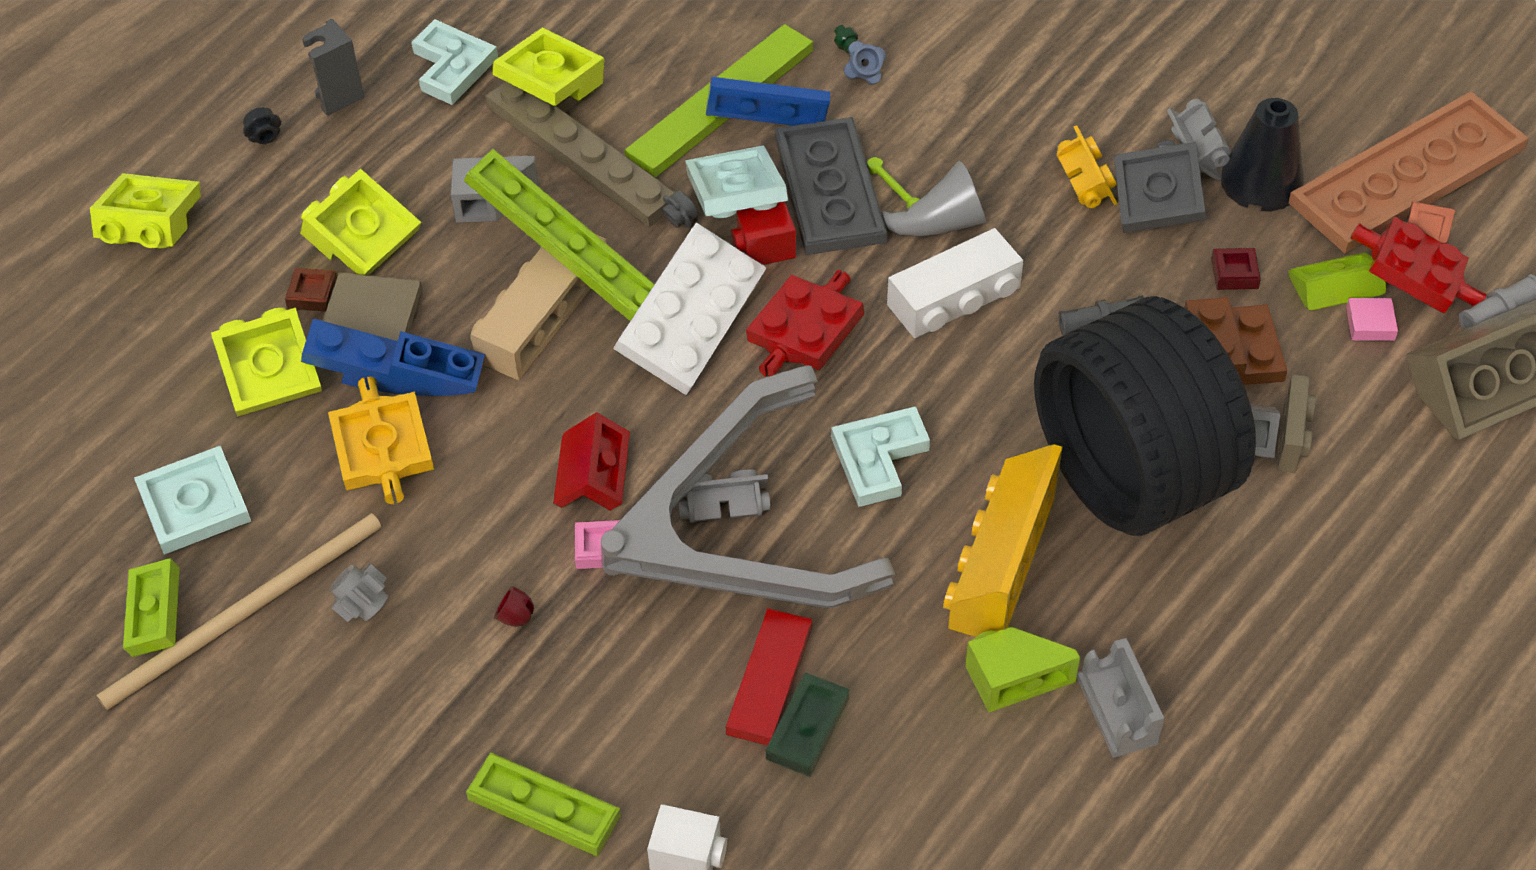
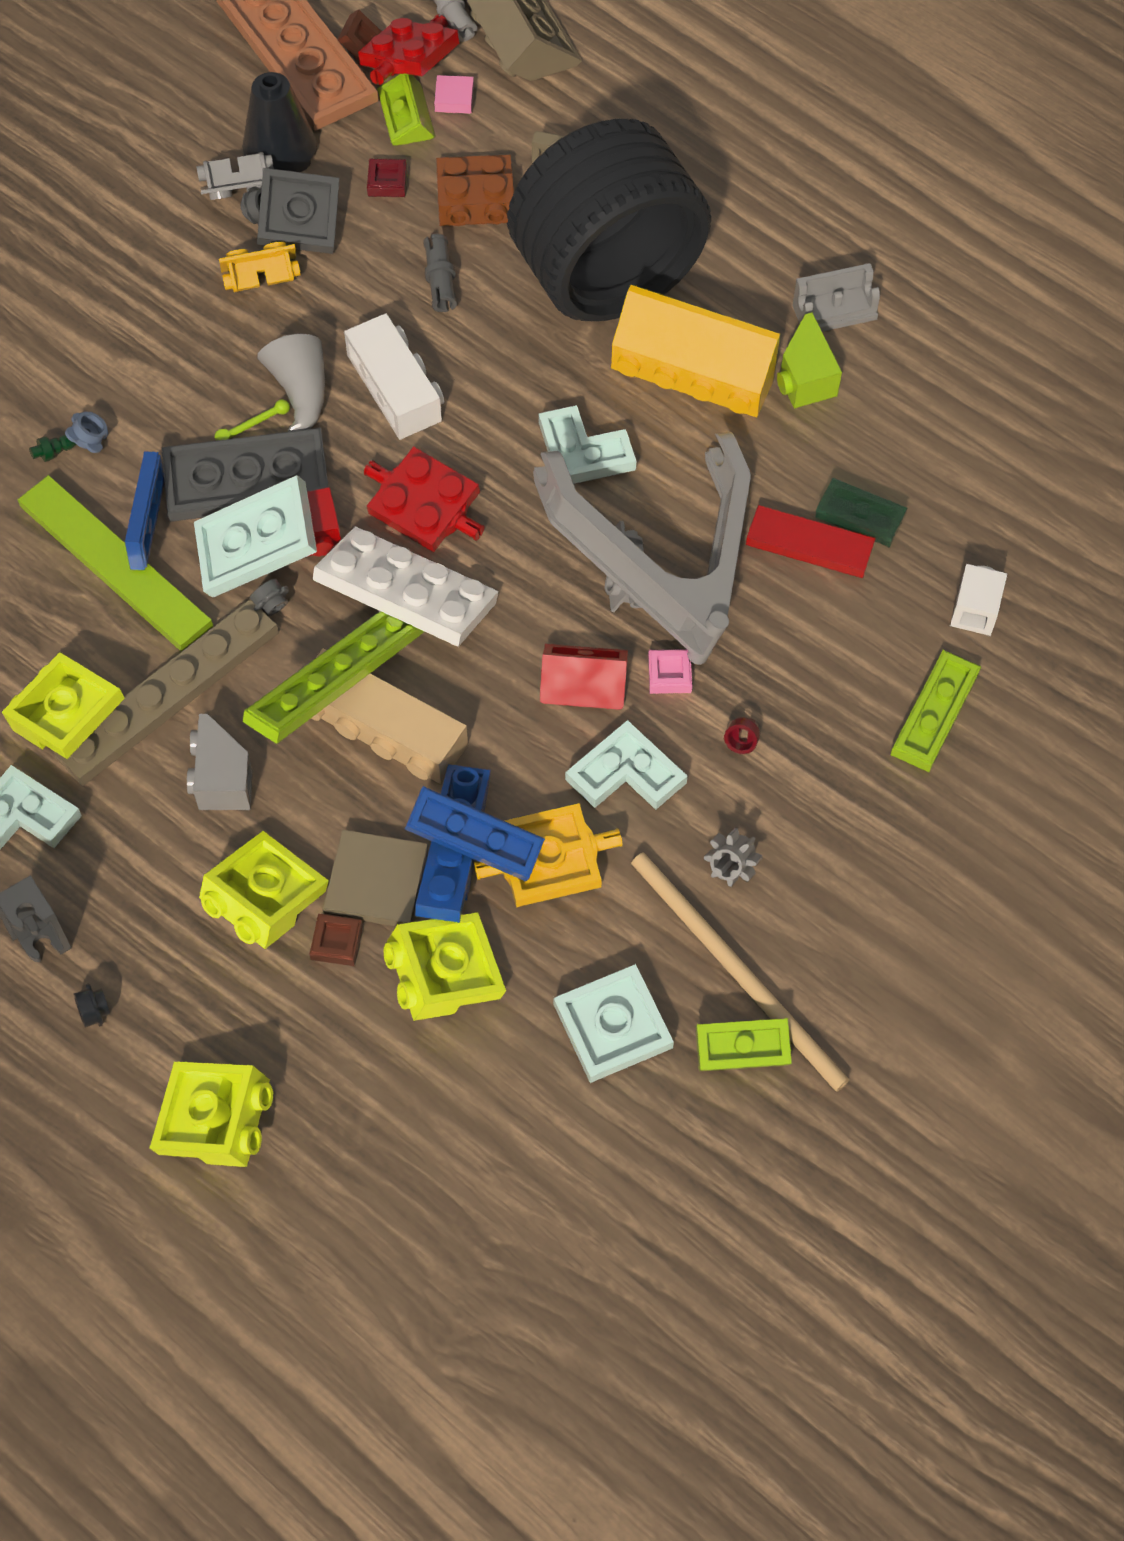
camera: 90 degrees left, 10 degrees up
(385, 360) = (474, 833): none -> blue tile
(483, 505) = (626, 758): none -> light aqua plate

